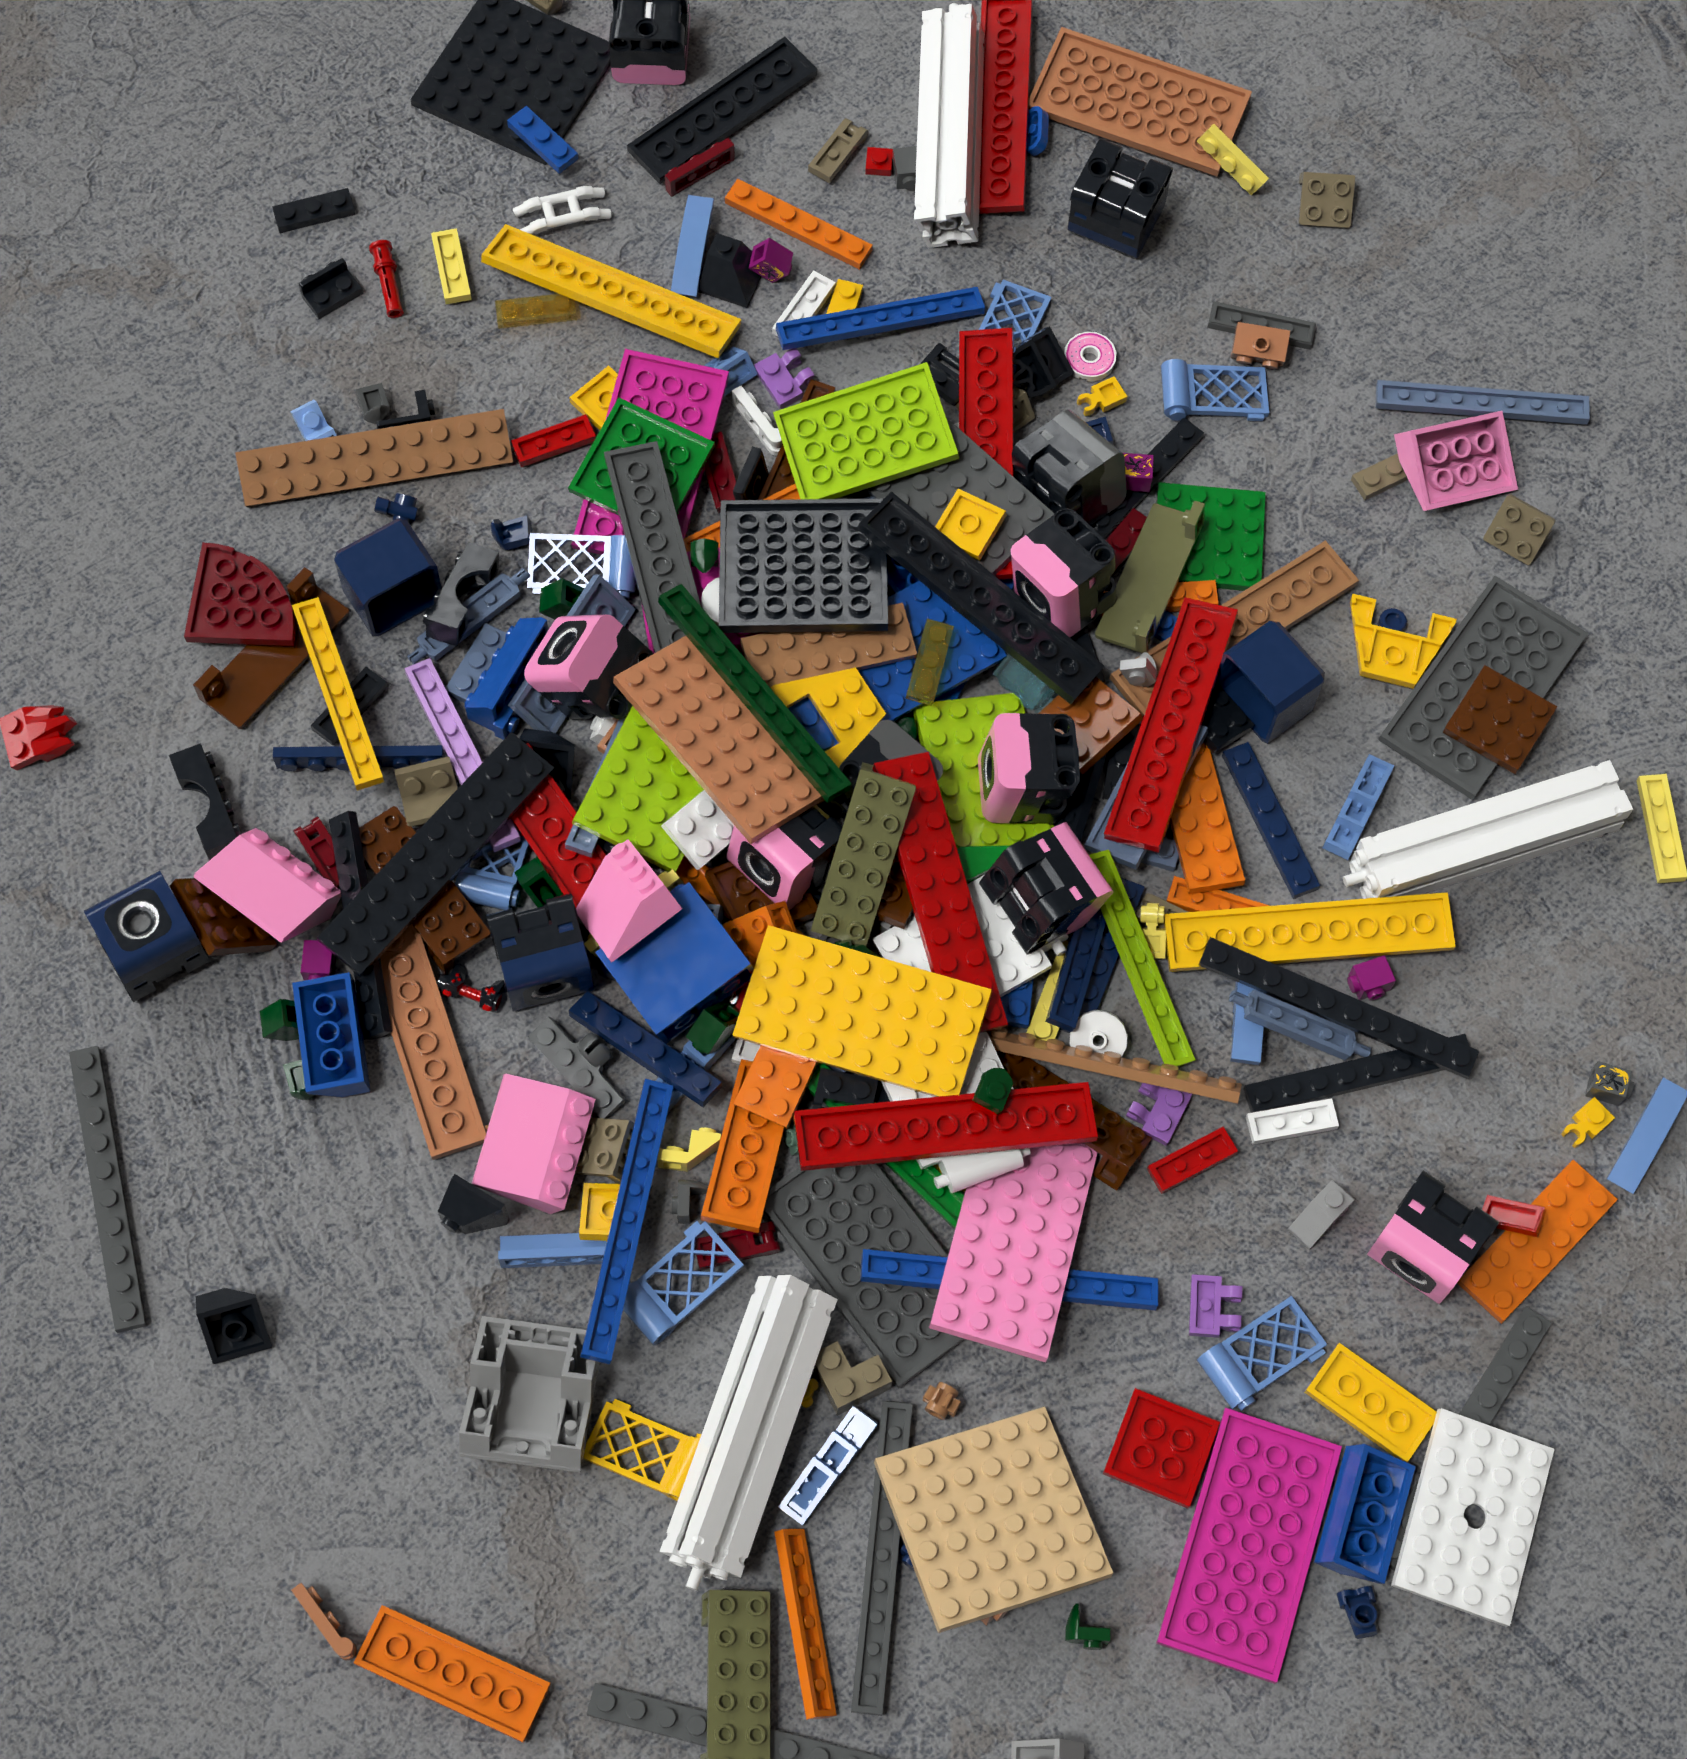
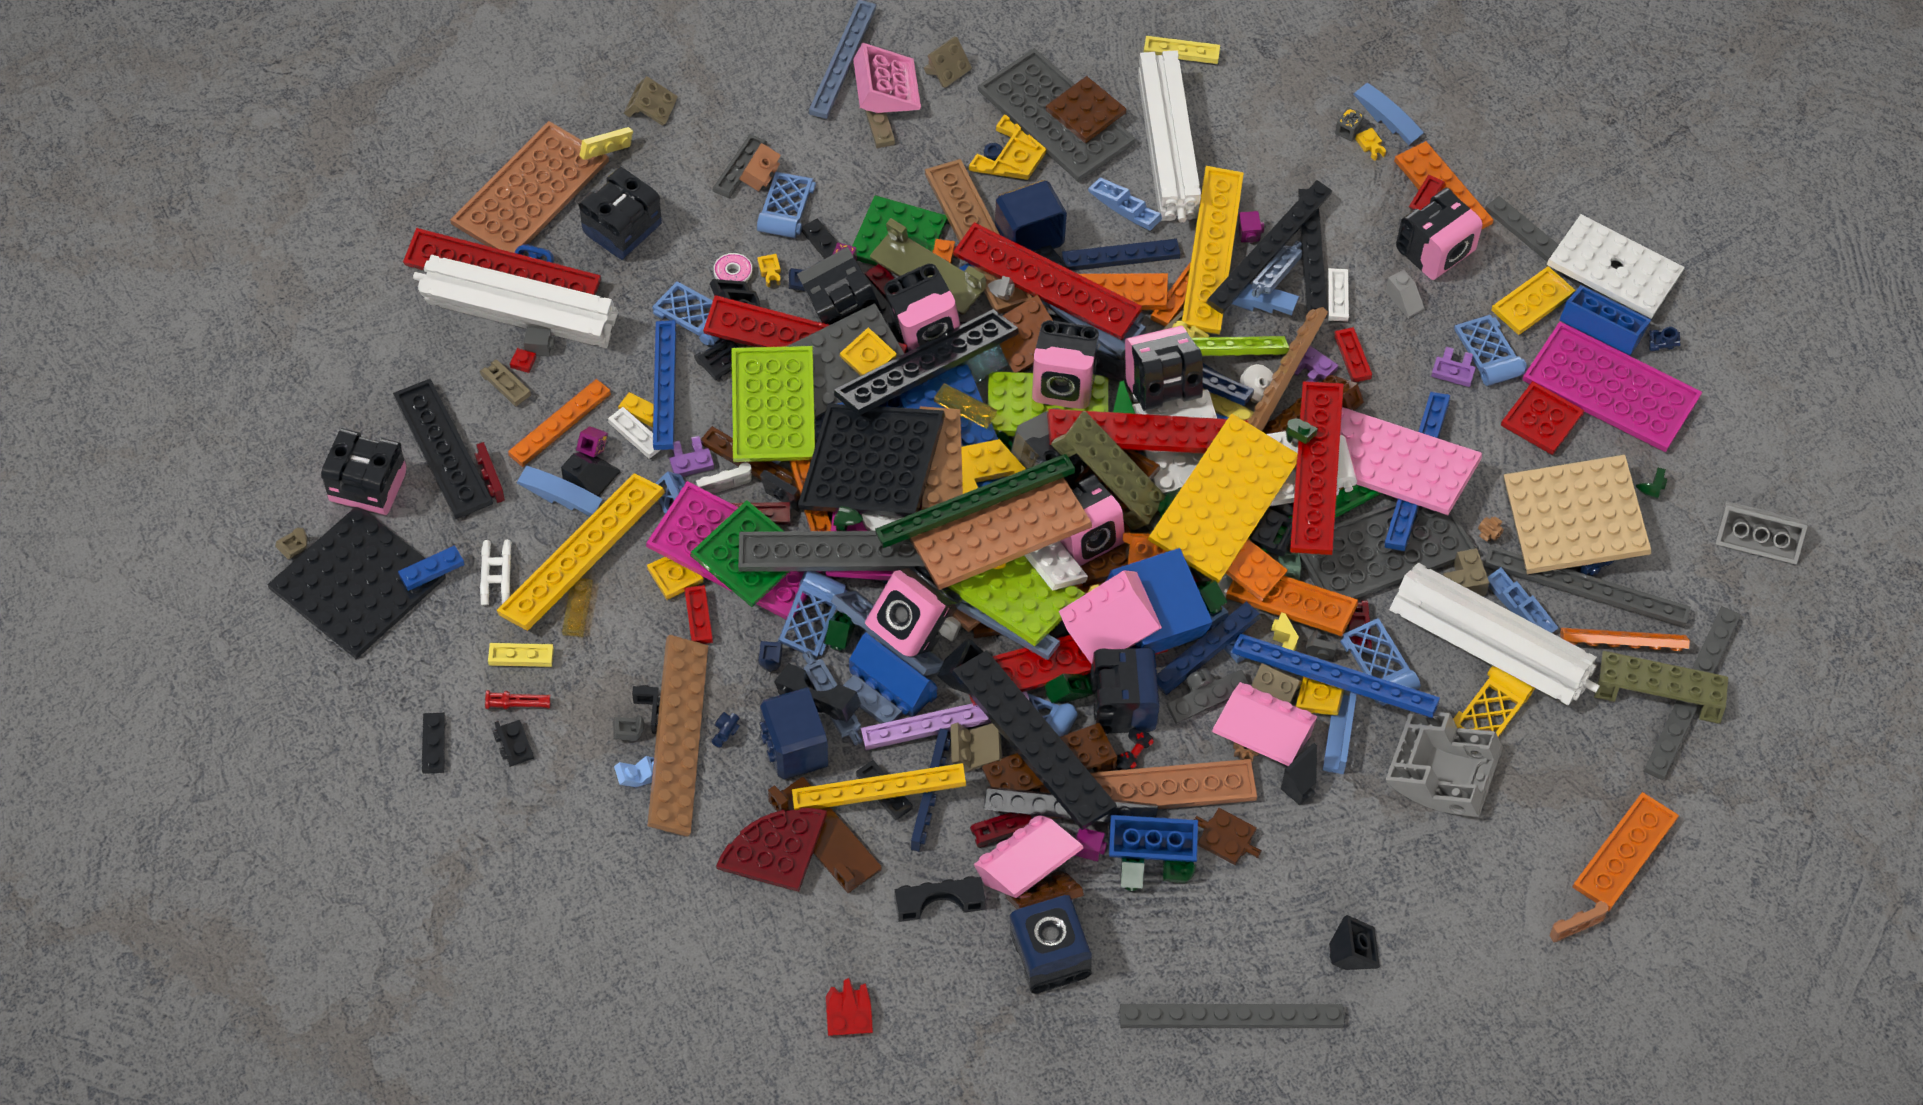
camera: 75 degrees left, 10 degrees down
(368, 1132) = (1227, 836): none -> reddish brown plate

